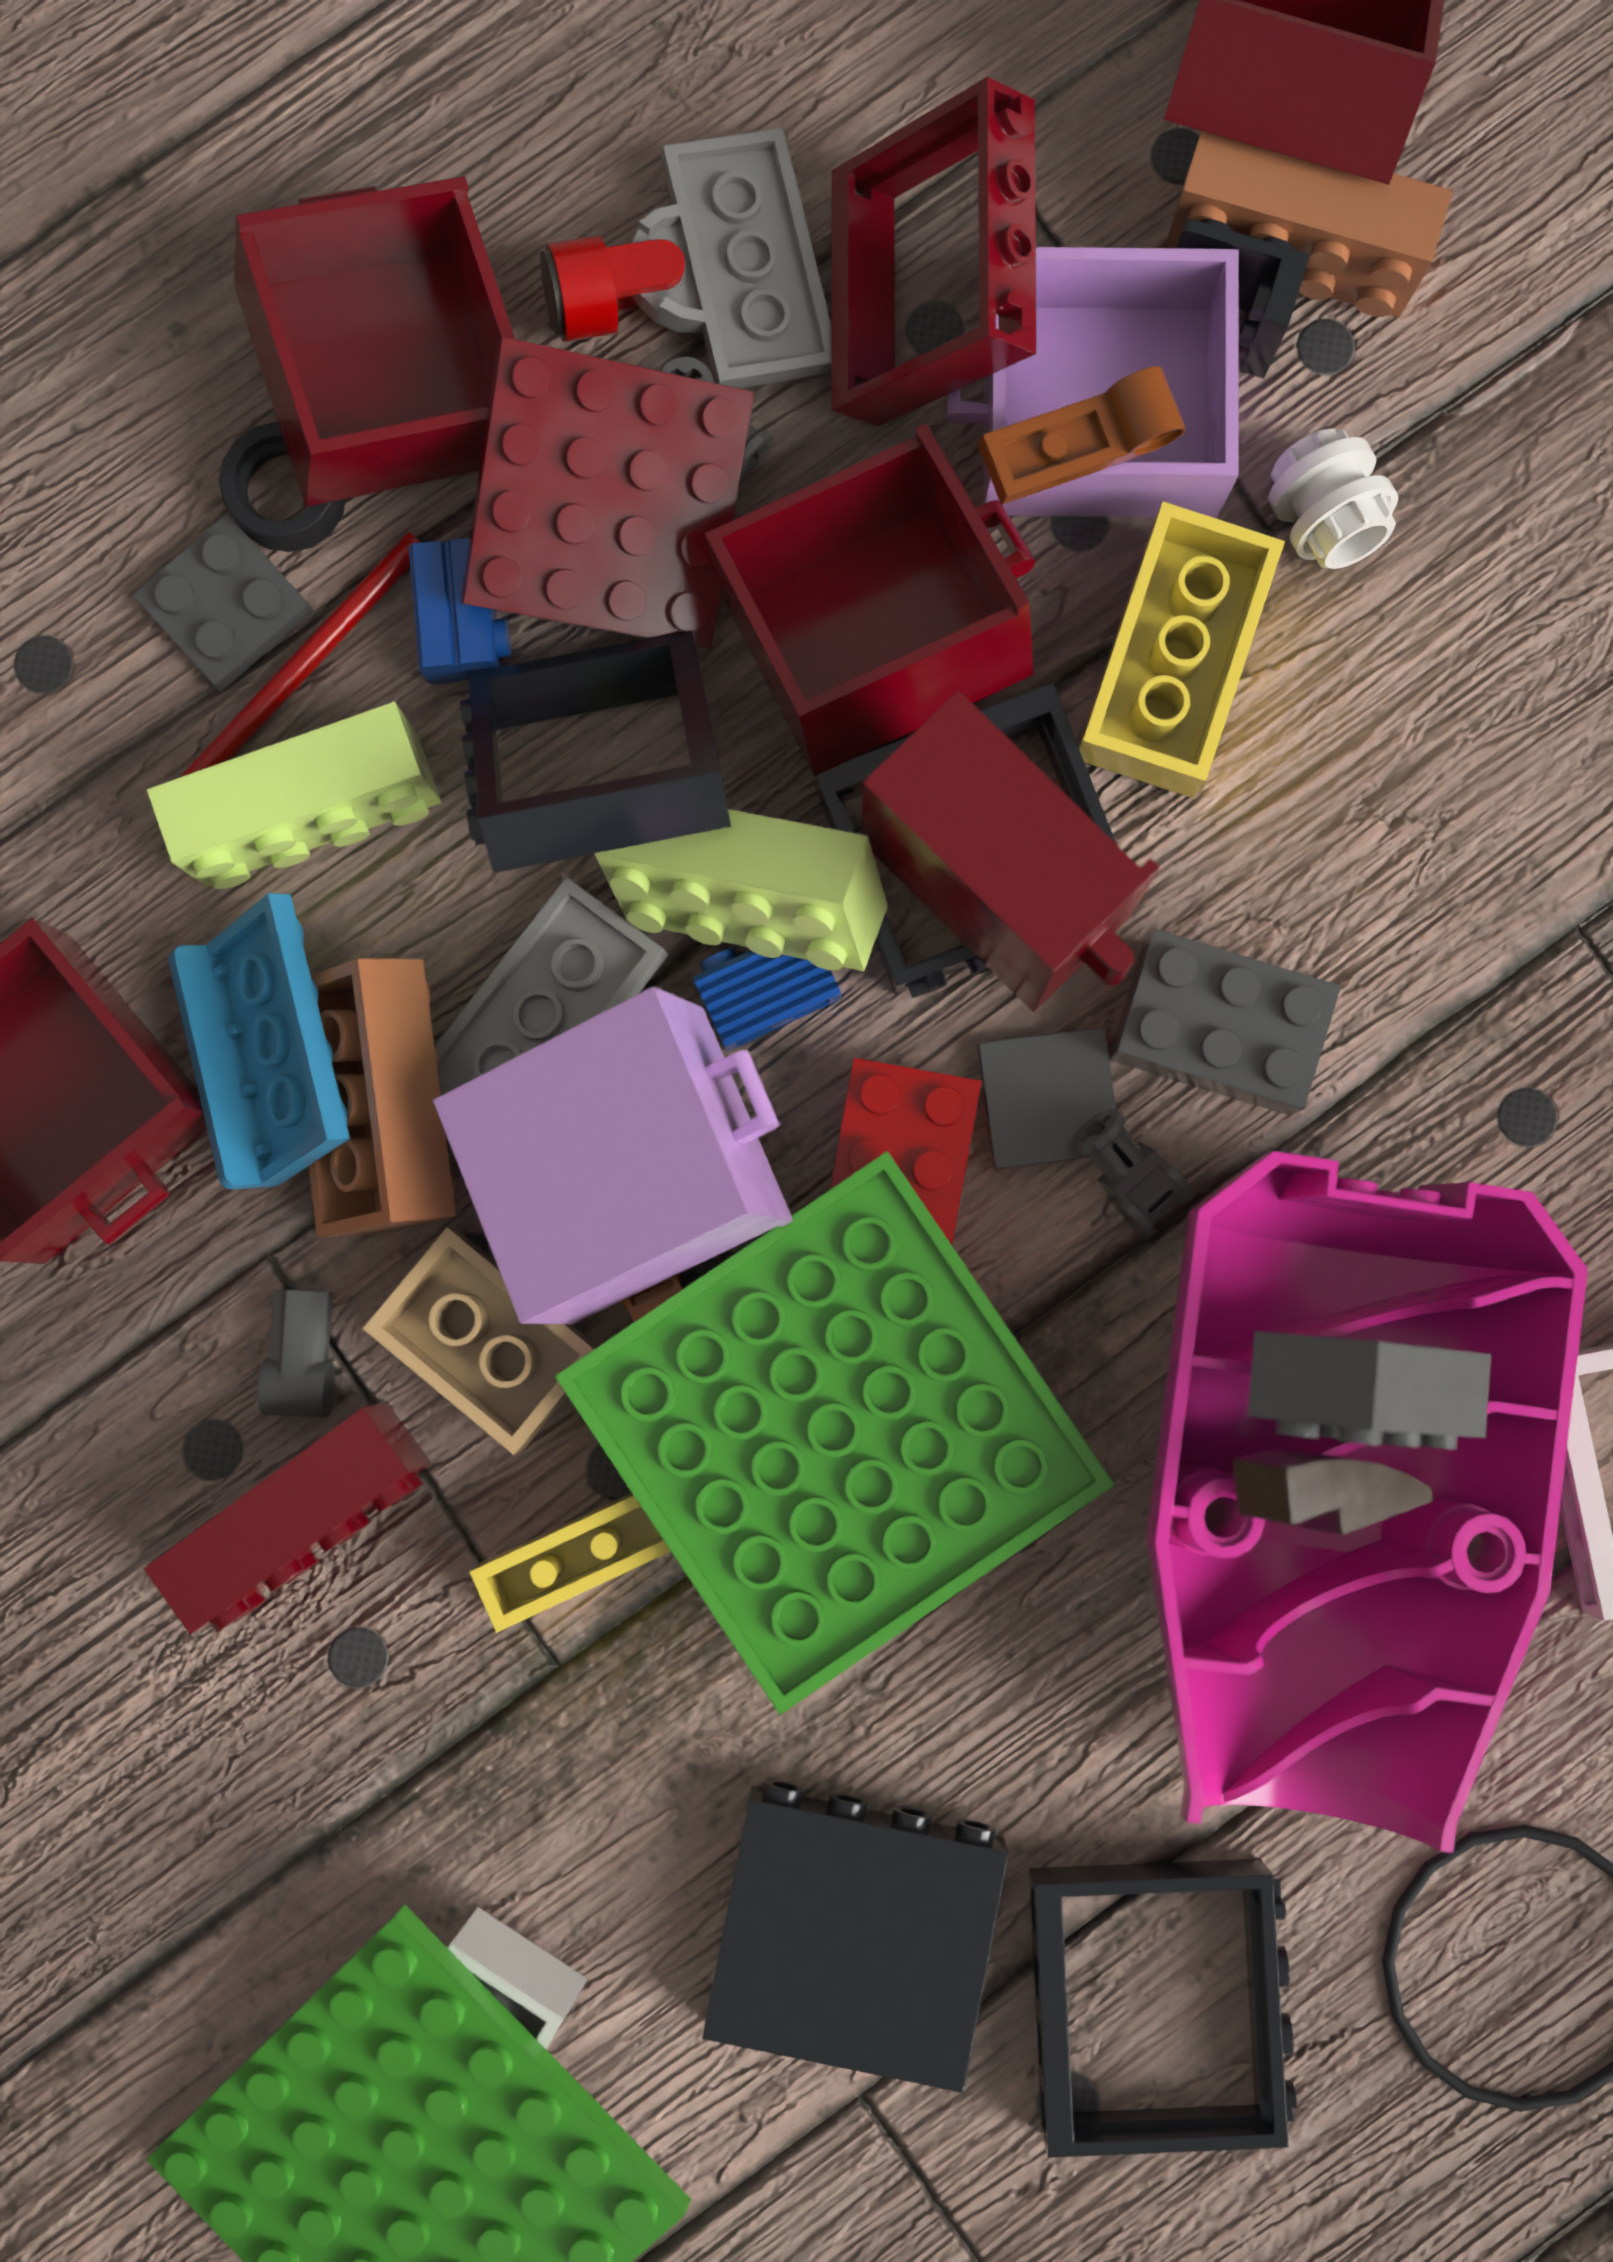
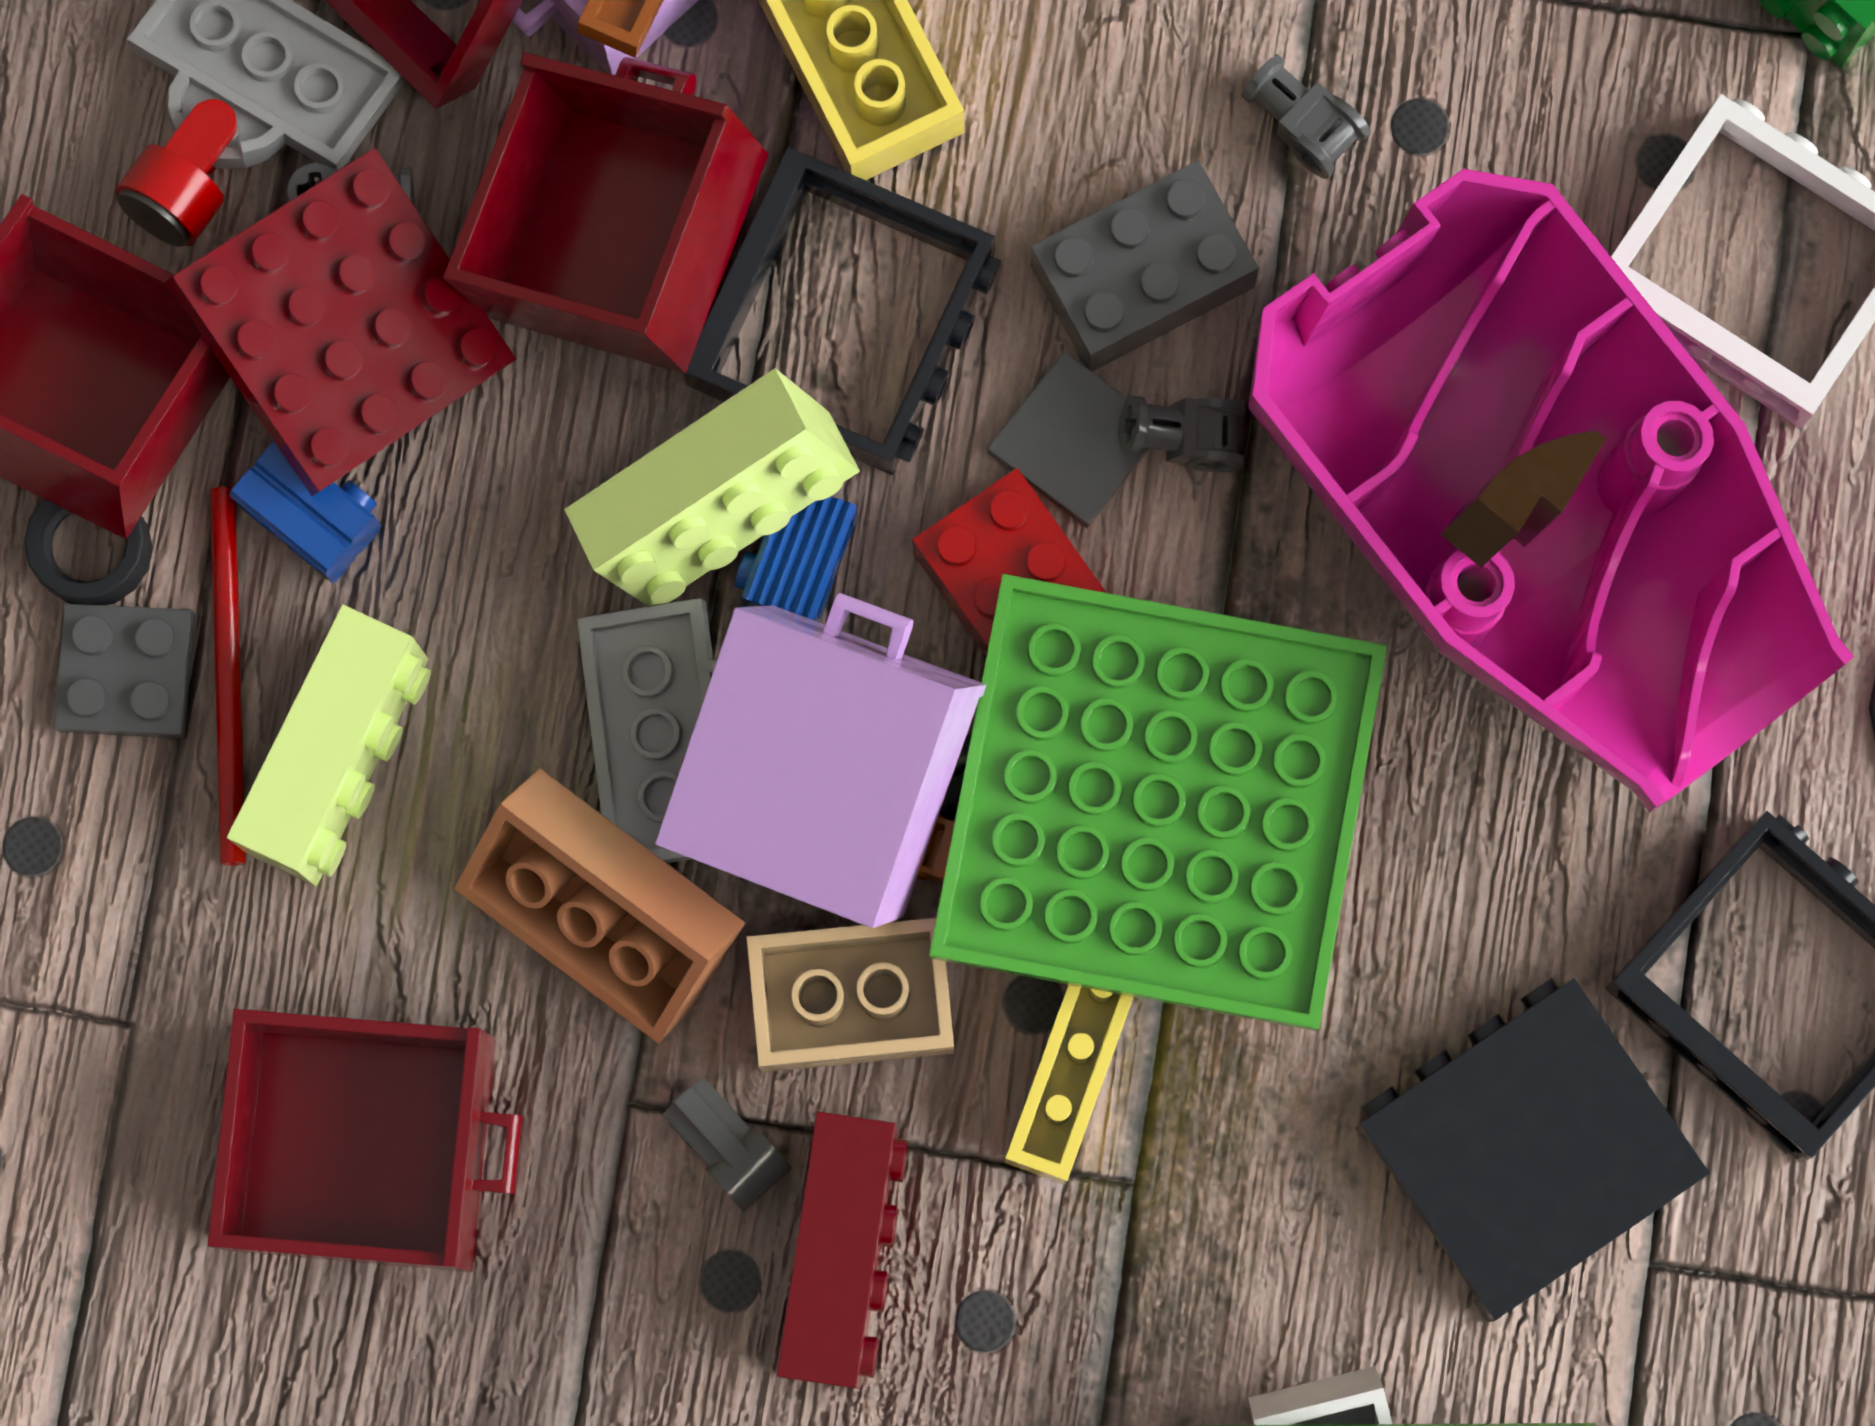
camera: 45 degrees left, 5 degrees down
(259, 1048) = (483, 945): dark azure bracket -> none
(604, 813) = (570, 541): black window -> none
(1002, 854) = (883, 293): dark red container -> none
(1368, 1390) = (1483, 400): dark grey brick -> none
(1452, 1030) = (1310, 121): none -> dark grey connector

